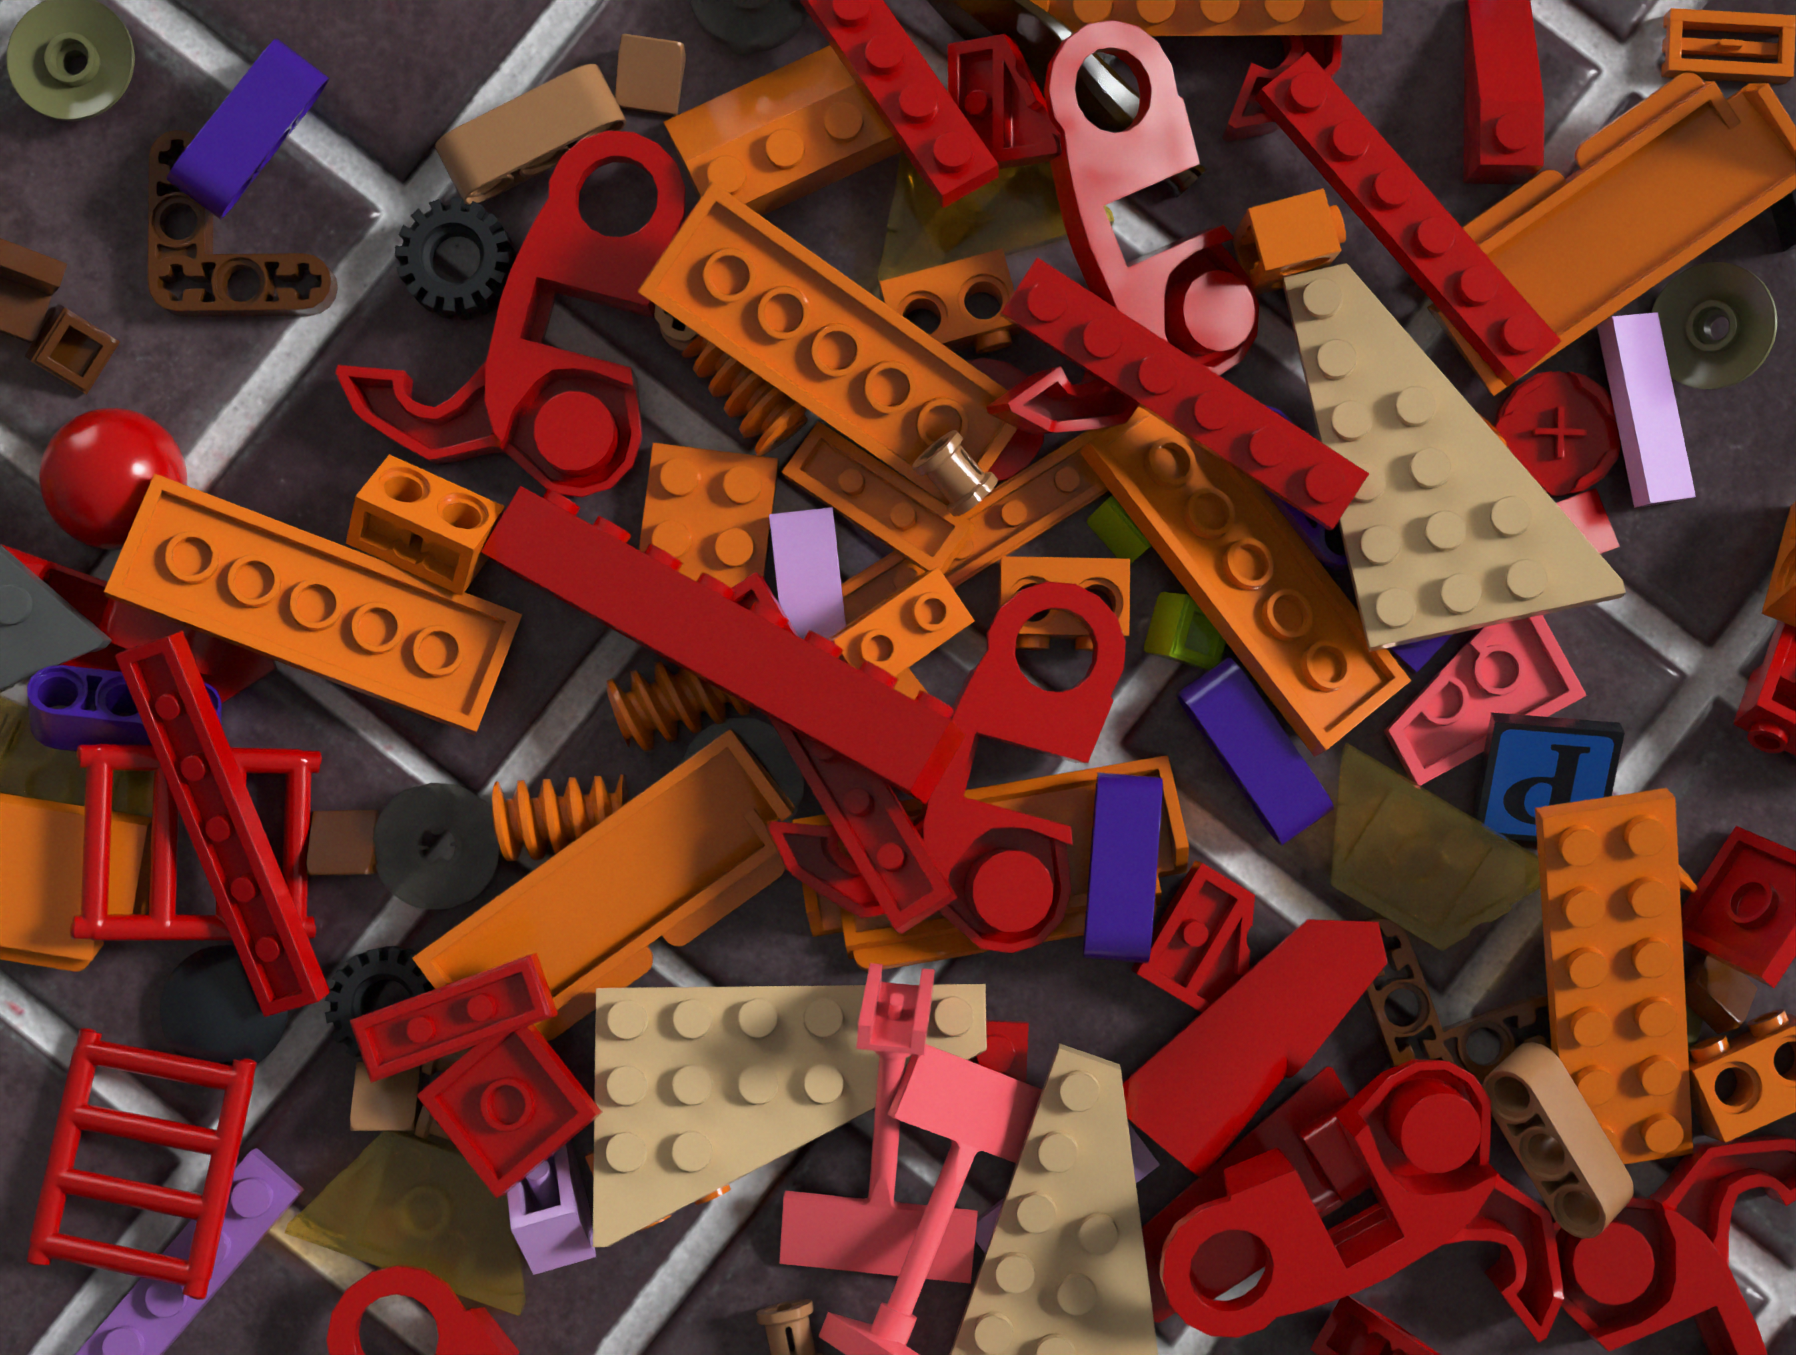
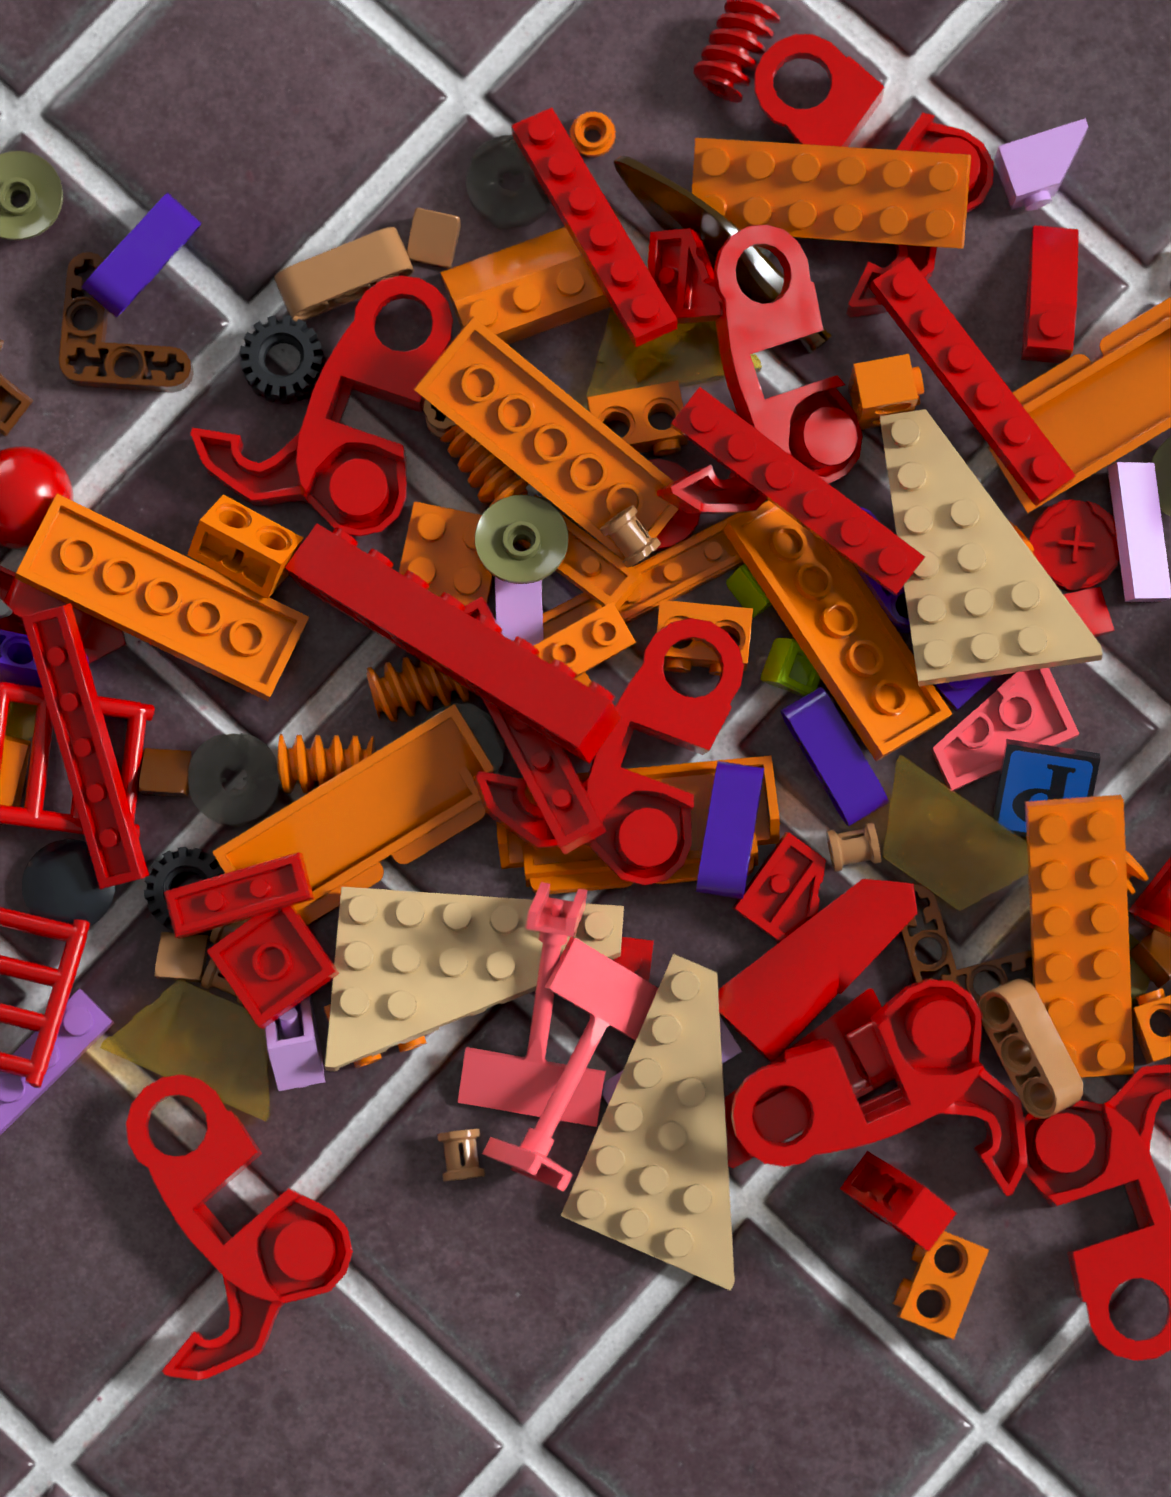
camera: 10 degrees right, 5 degrees down
(797, 459) = (521, 519): none -> olive dish
(1290, 873) = (853, 846): none -> medium nougat bush

